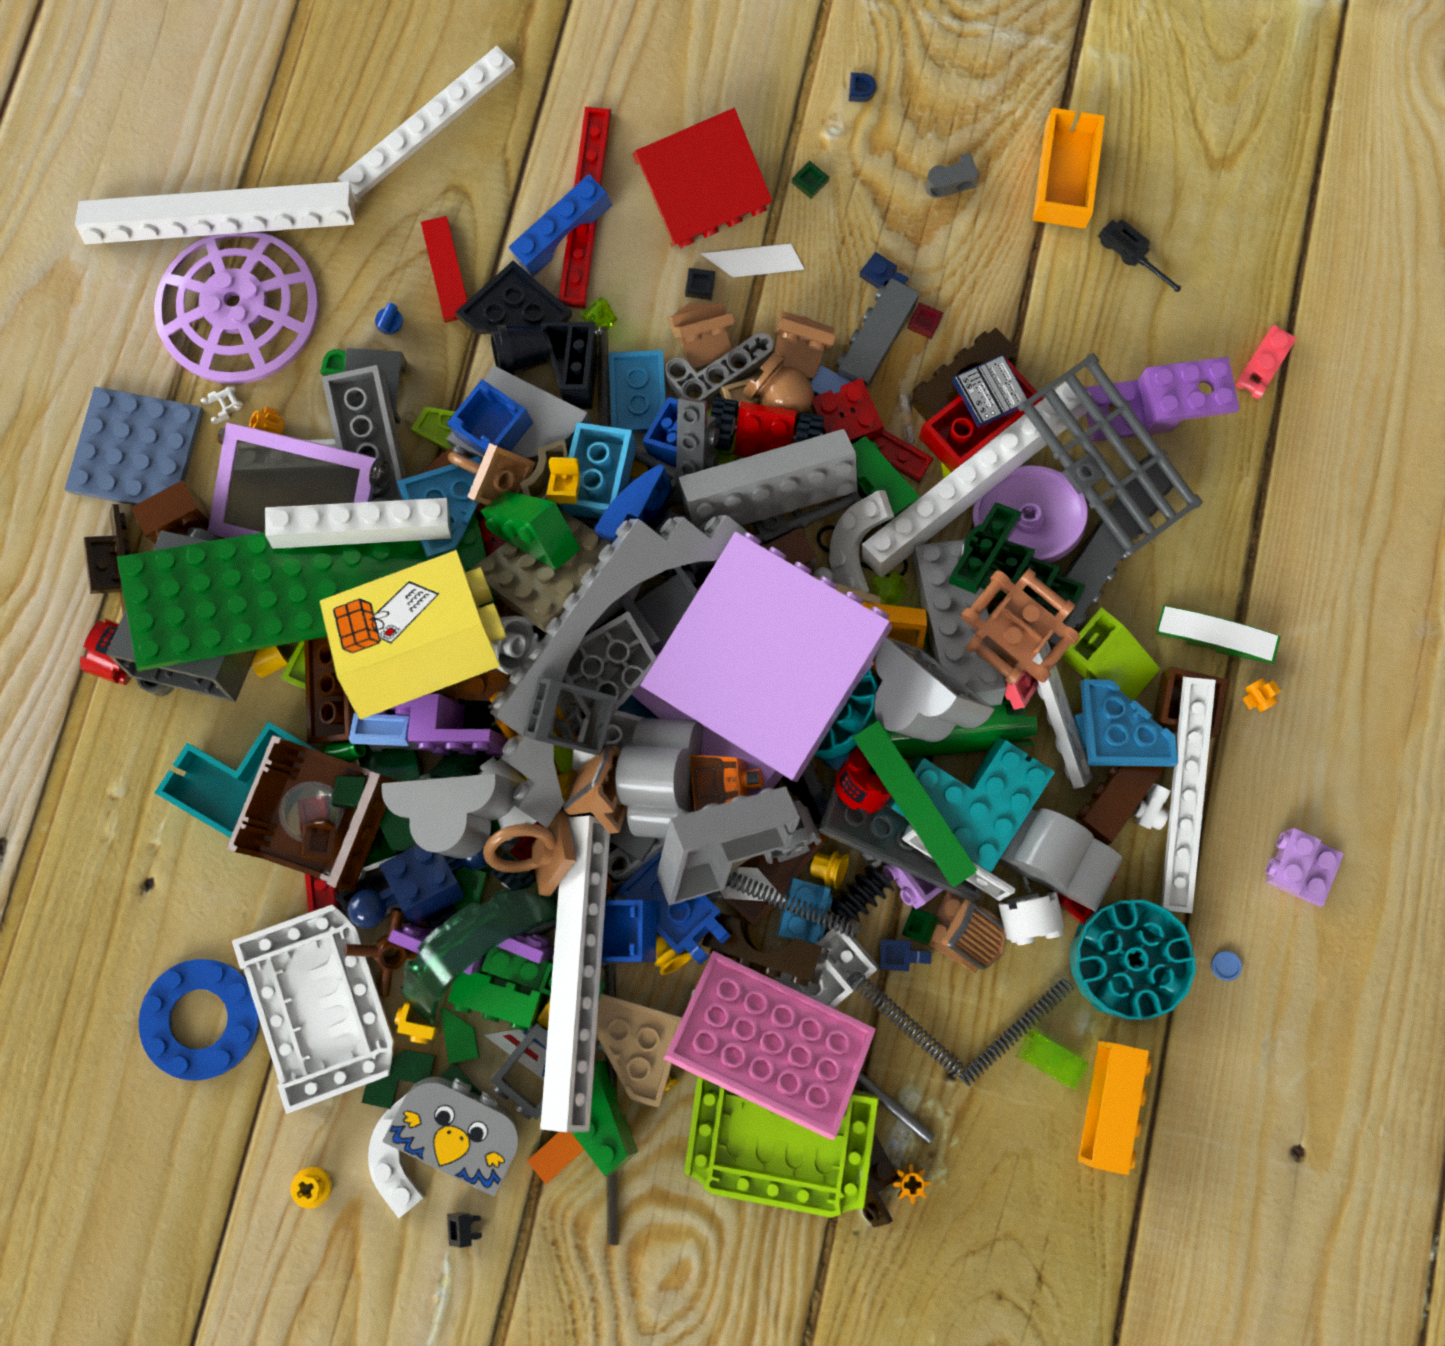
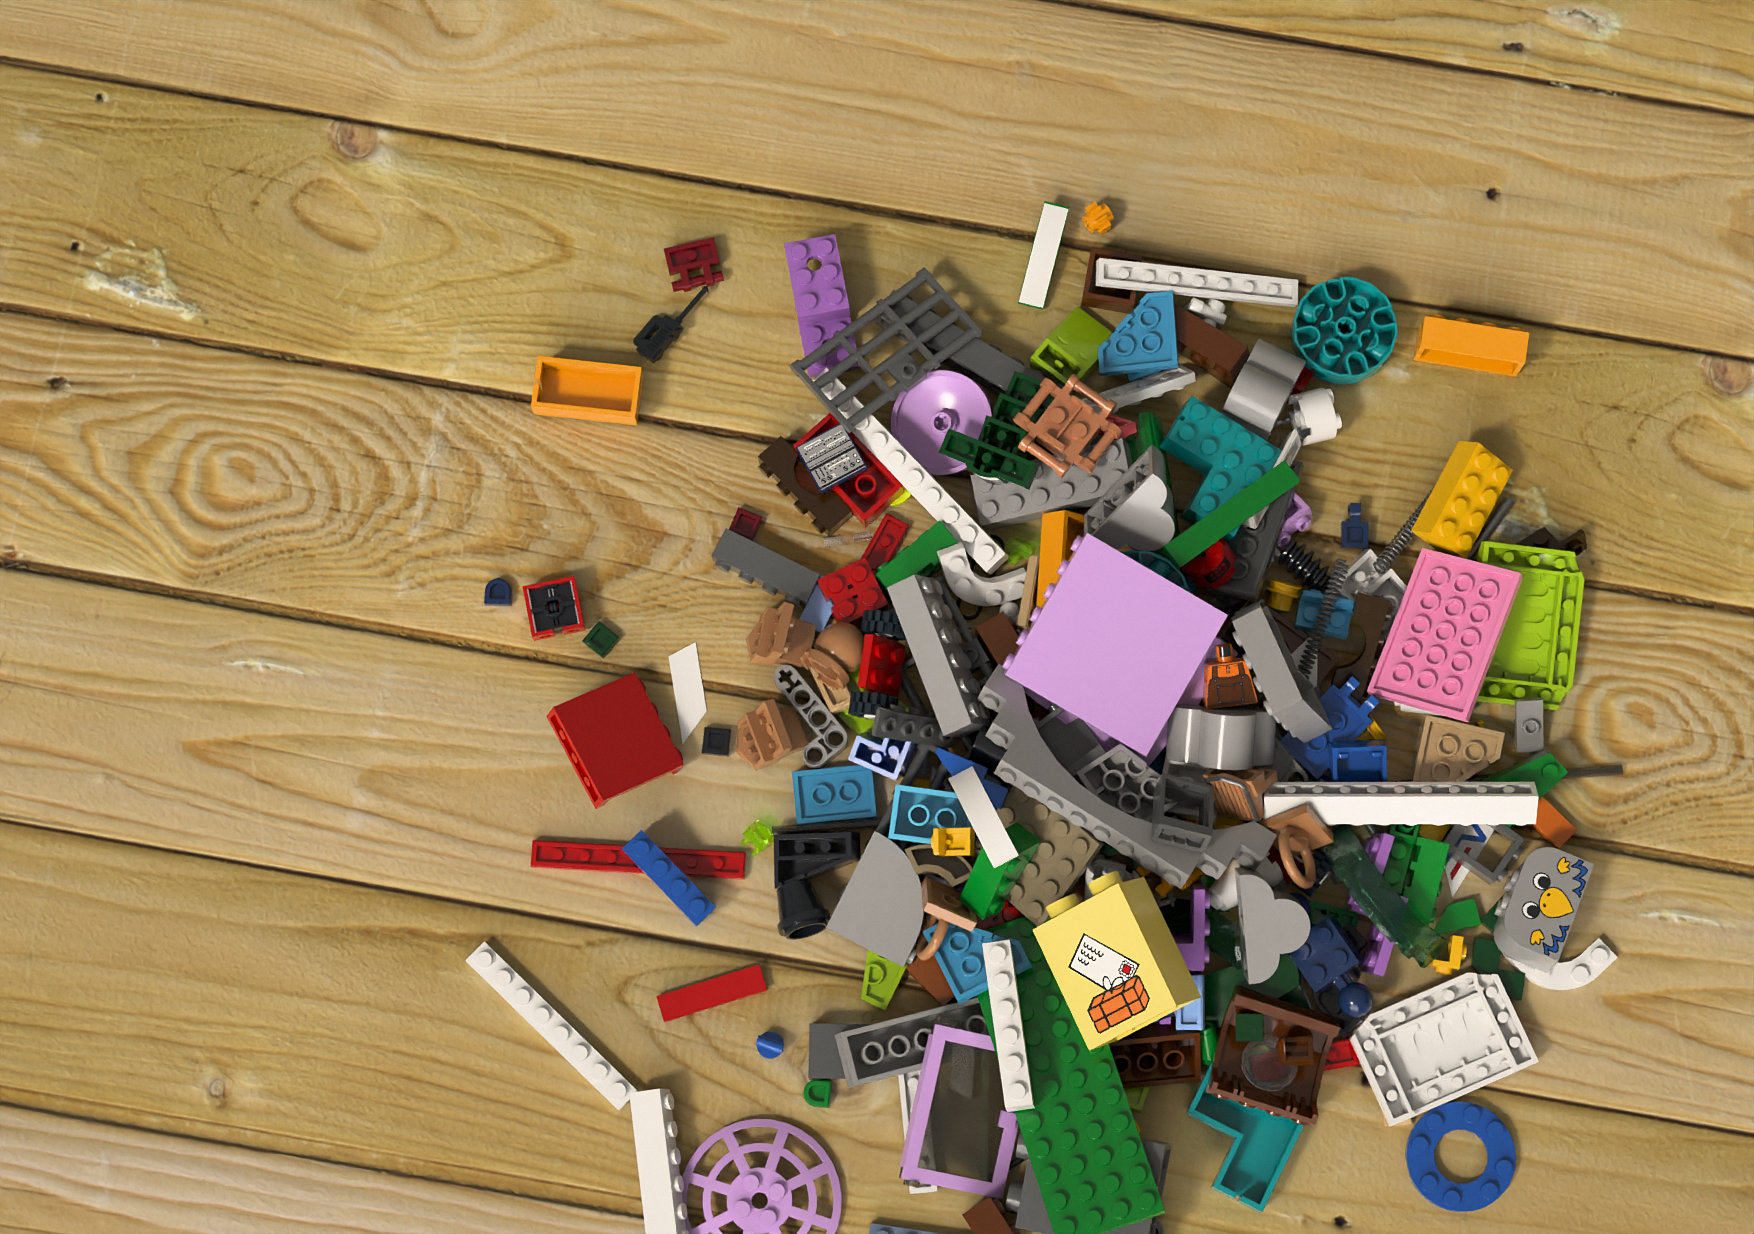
camera: 90 degrees left, 0 degrees up
(224, 415) = (859, 1193): white piece -> none
(267, 420) = (887, 1152): light orange gear -> none
(320, 1193) = (1588, 1037): yellow piece -> none
(378, 950) = (1388, 986): reddish brown bar -> none
(460, 1229) = (1621, 901): black tile -> none
(489, 418) = (891, 920): blue container -> none
(512, 299) = (750, 920): black plate -> none
(578, 497) = (983, 817): none -> white slope
(668, 1138) = (1529, 725): none -> light grey plate
(843, 132) = (551, 597): none -> piece
(880, 270) = (698, 568): dark blue plate -> none
(917, 1188) = (1553, 510): light orange gear -> none
(920, 925) = (1327, 513): dark green tile -> none
(931, 1080) = (1462, 499): none -> yellow brick
(953, 178) = (600, 510): dark grey leg -> none
(966, 1073) = (1406, 427): dark grey piece -> none
(967, 933) = (1330, 474): medium nougat piece -> none
(1052, 1060) = (1434, 398): clear neon green brick -> none
(1212, 279) = (692, 257): none -> dark red plate
(1226, 965) = (1340, 251): medium blue piece -> none
(1265, 361) = (773, 209): coral plate -> none
(1303, 866) = (1248, 184): lavender plate -> none

